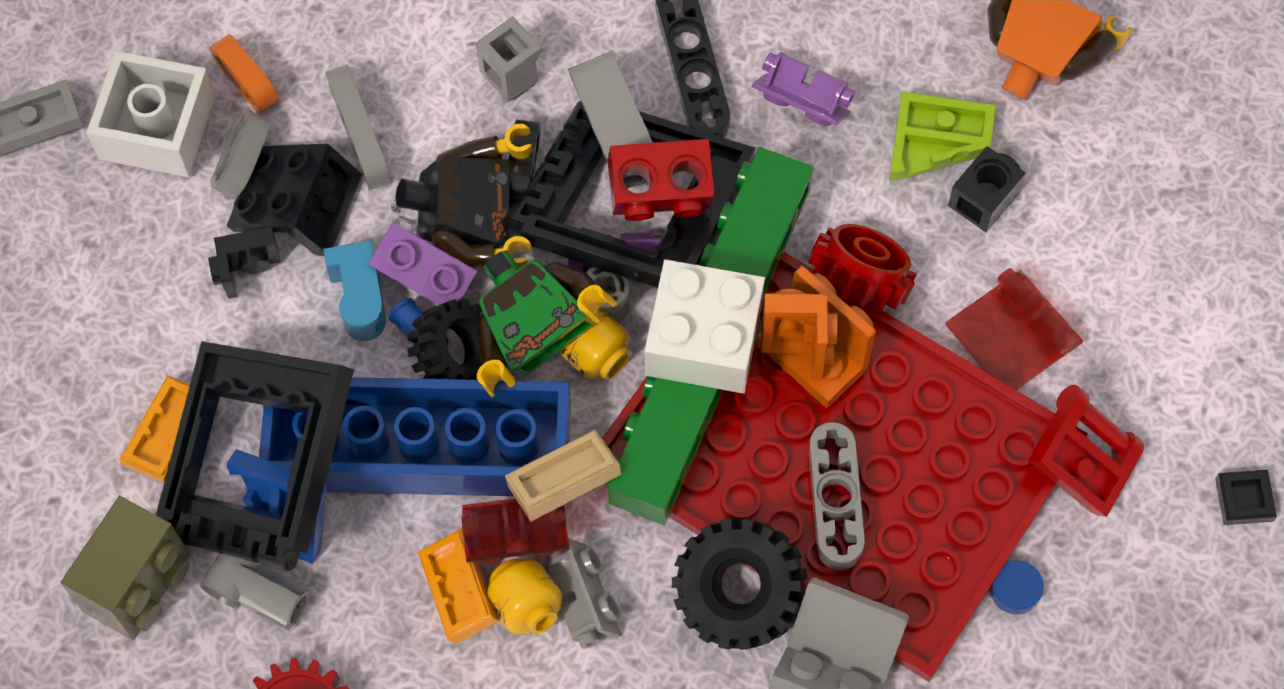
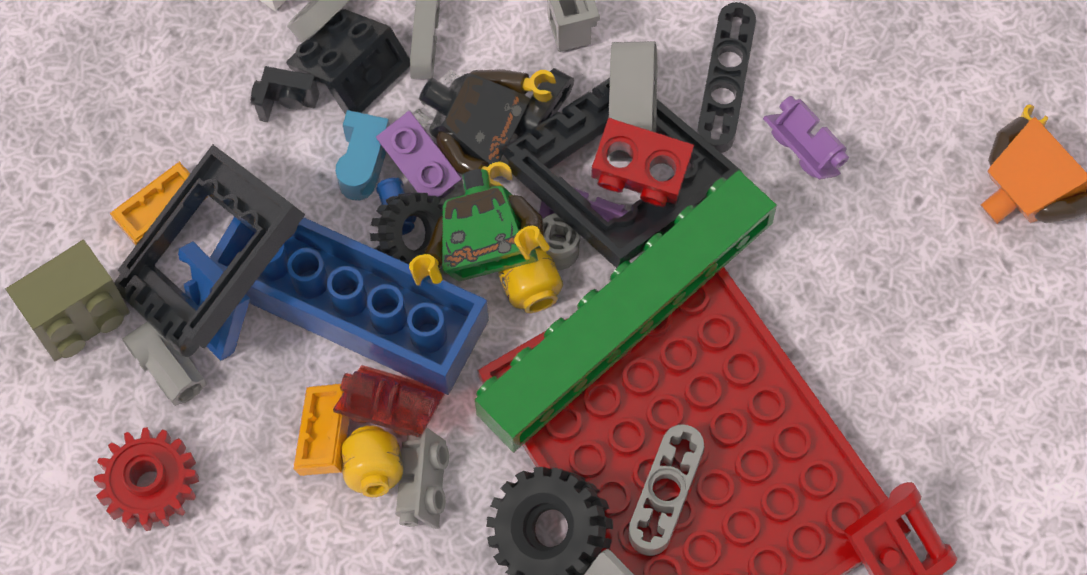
camera: 25 degrees right, 0 degrees up
(563, 475) = (442, 374): tan tile -> none
(704, 326) = (614, 299): white brick -> none
(799, 325) = (693, 331): orange bracket -> none
(851, 351) = (712, 352): orange bracket -> none
(864, 265) = (783, 306): red gear -> none
(938, 133) = (905, 222): lime wing -> none
(979, 204) = (912, 297): black brick -> none
(1014, 331) = (891, 416): clear red hinge -> none

